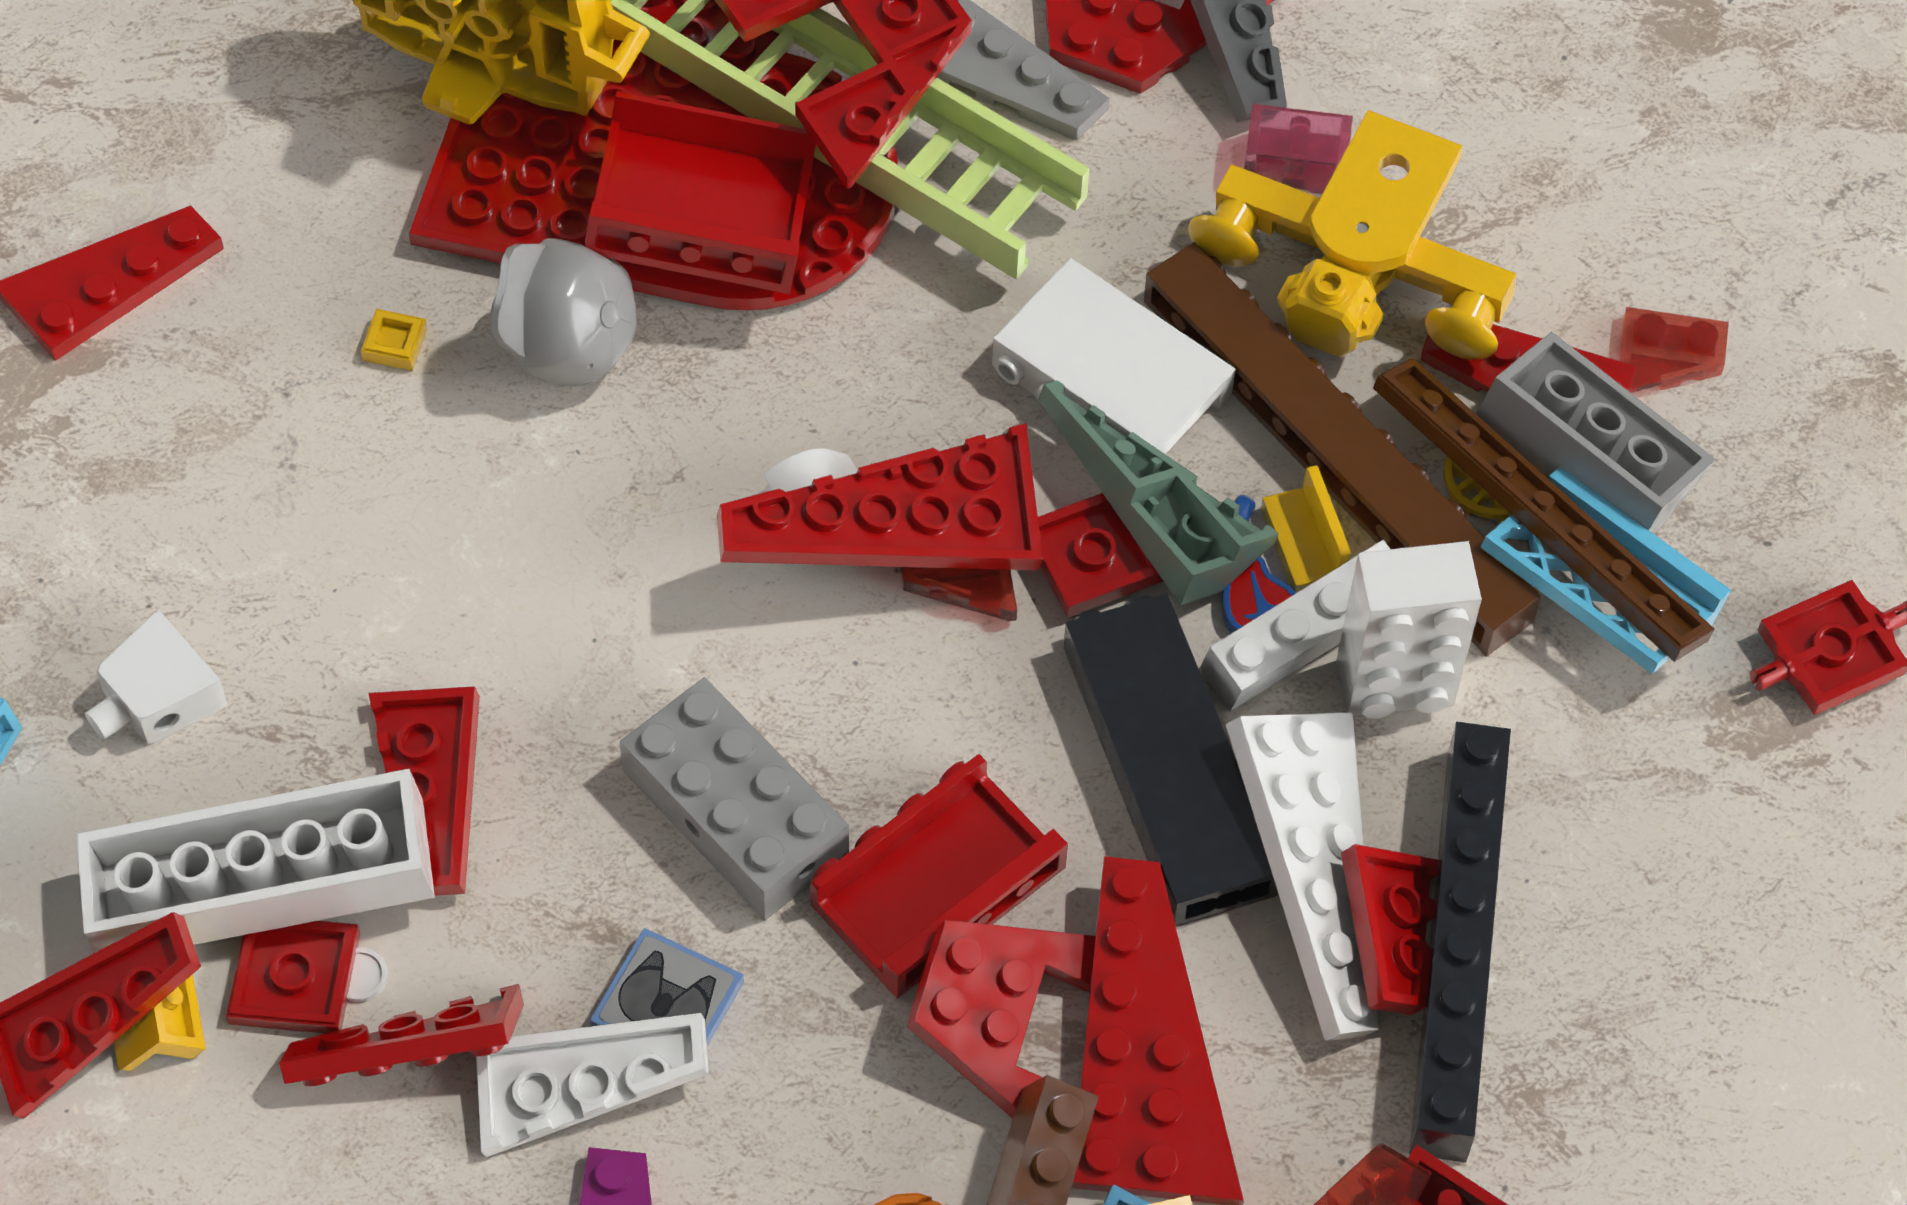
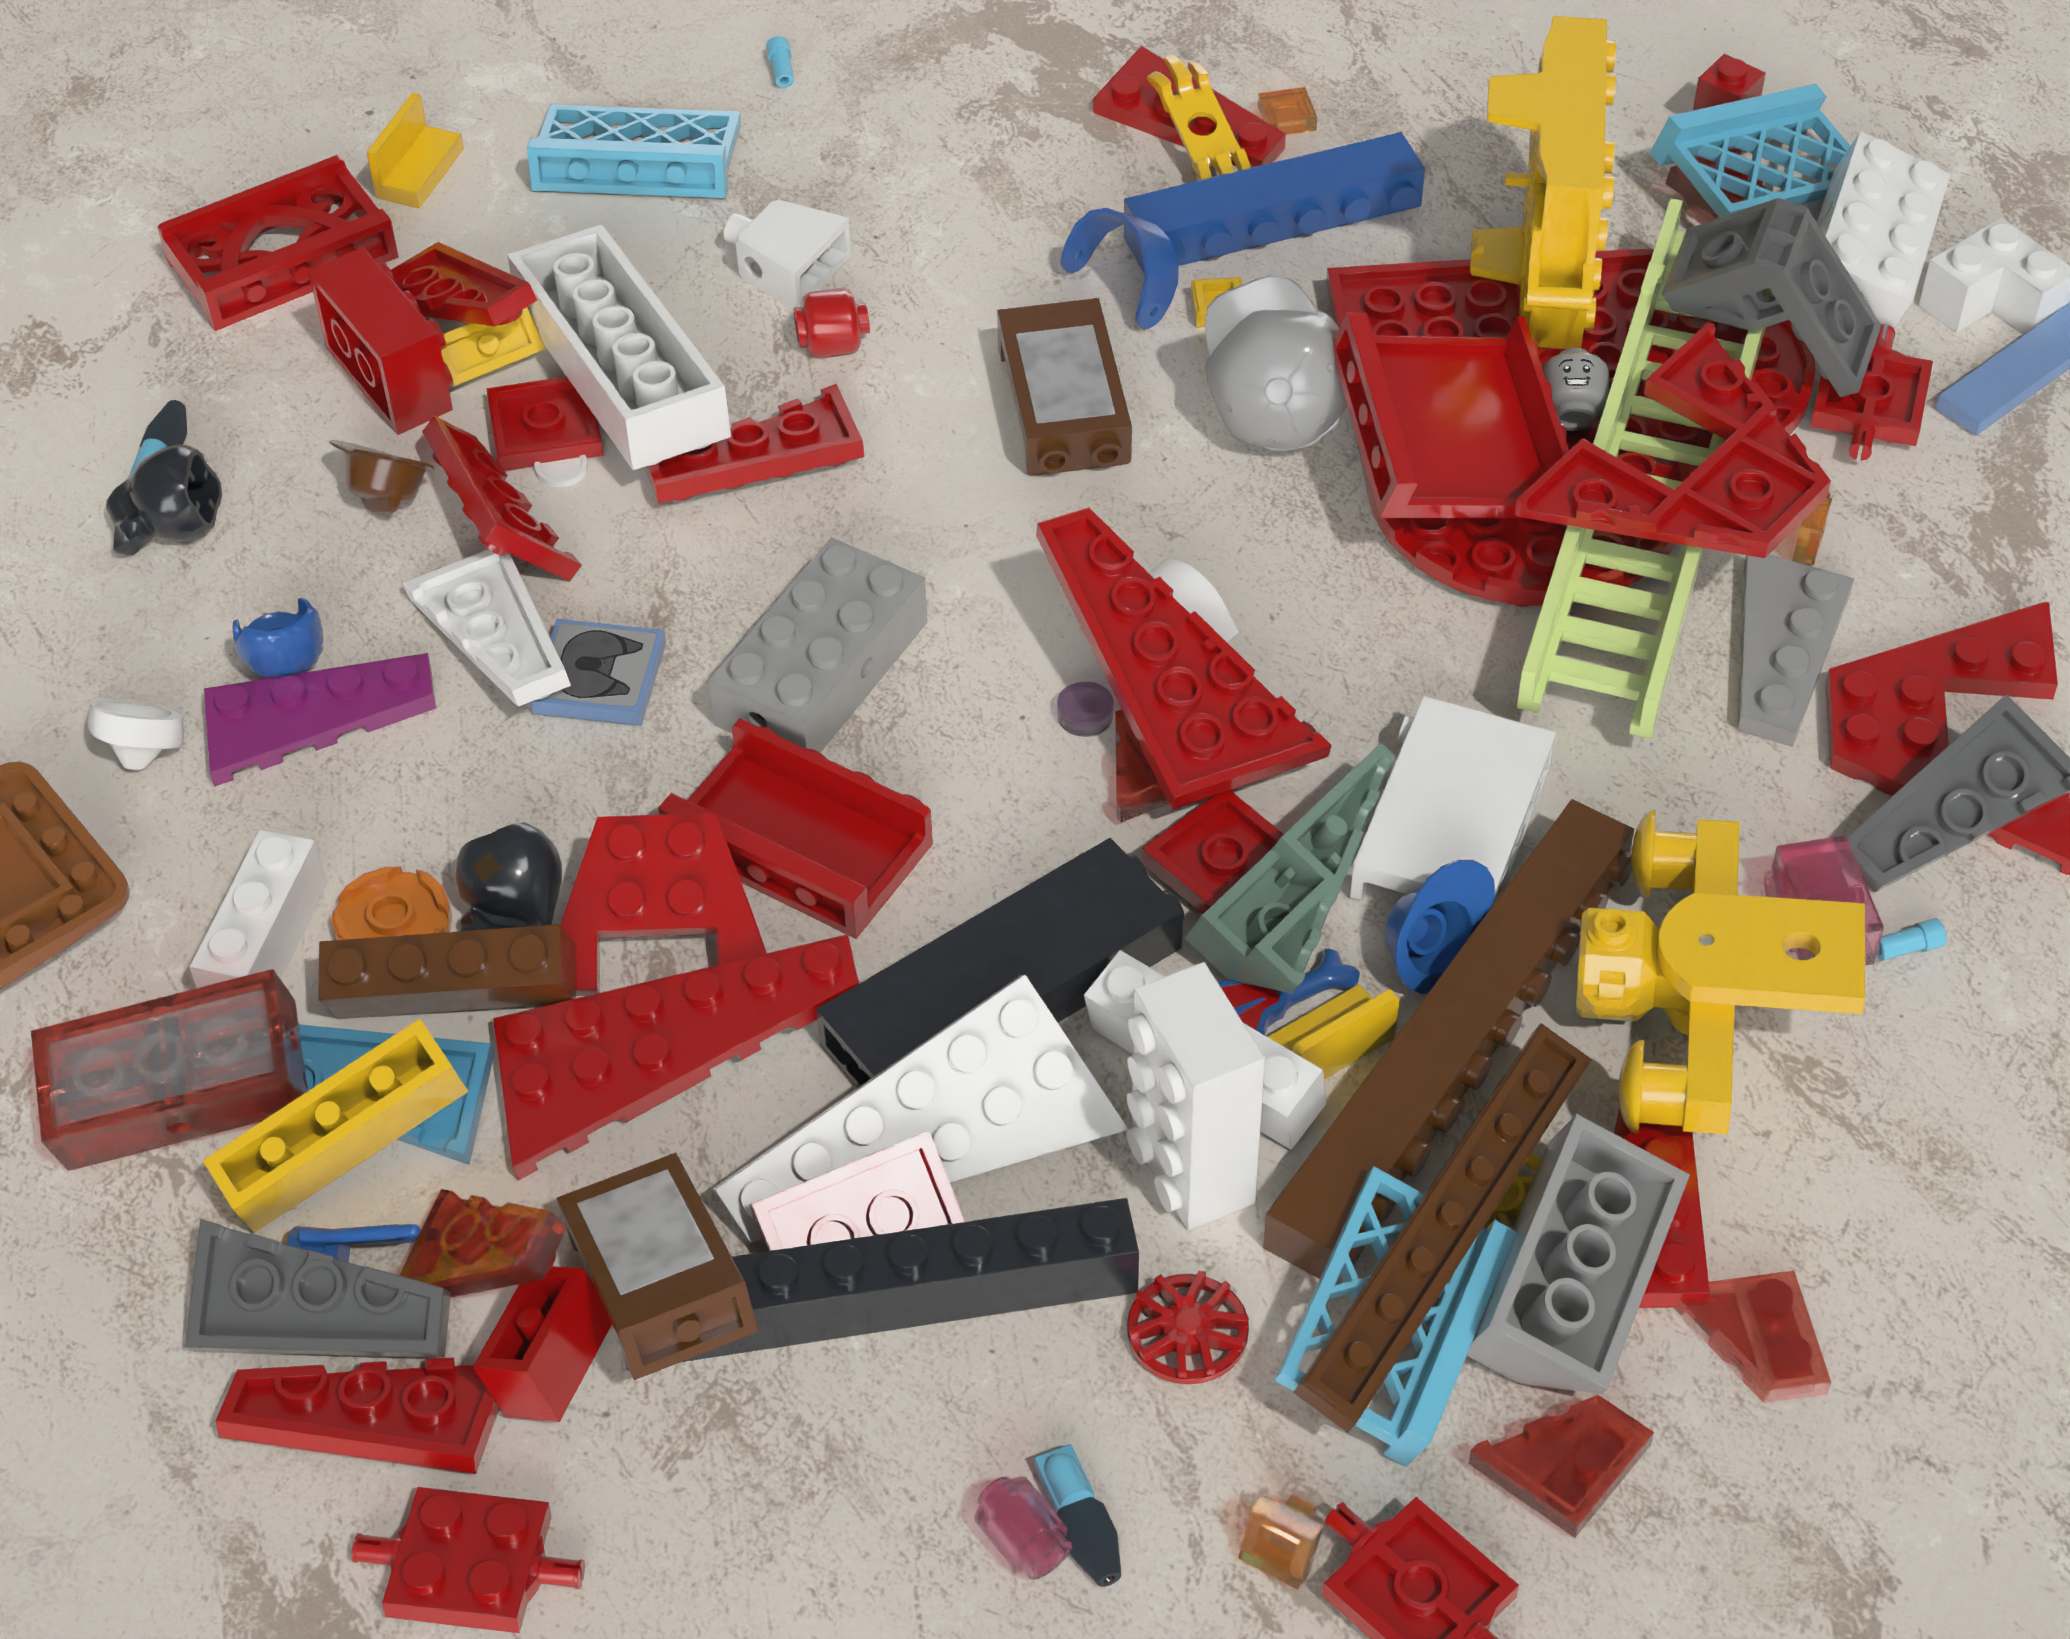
camera: 75 degrees right, 10 degrees down
(127, 260) = (1189, 103): none -> yellow piece
(138, 1090) = (382, 339): none -> red brick
(149, 193) = (1288, 110): none -> clear orange tile
(280, 674) = (830, 323): none -> red head
(291, 249) = (1282, 199): none -> blue brick
(305, 361) = (1159, 258): none -> blue piece
(320, 1138) = (380, 477): none -> reddish brown piece
(468, 493) = (1065, 386): none -> reddish brown panel
(682, 84) = (1578, 387): none -> light grey head
(872, 608) = (1085, 709): none -> clear purple tile
(933, 1129) = (509, 878): none -> black piece
(1233, 425) = (1436, 921): none -> blue piece
(1340, 98) = (1923, 936): none -> medium azure piece
(1408, 1089) = (658, 1265): none -> reddish brown panel
(1553, 731) = (1187, 1327): none -> red wheel
(1702, 858) = (1086, 1518): none -> piece
(1712, 897) = (1022, 1526): none -> clear pink brick
(1750, 513) = (1566, 1461): none -> clear red wing
(1770, 720) = (1282, 1539): none -> clear orange tile

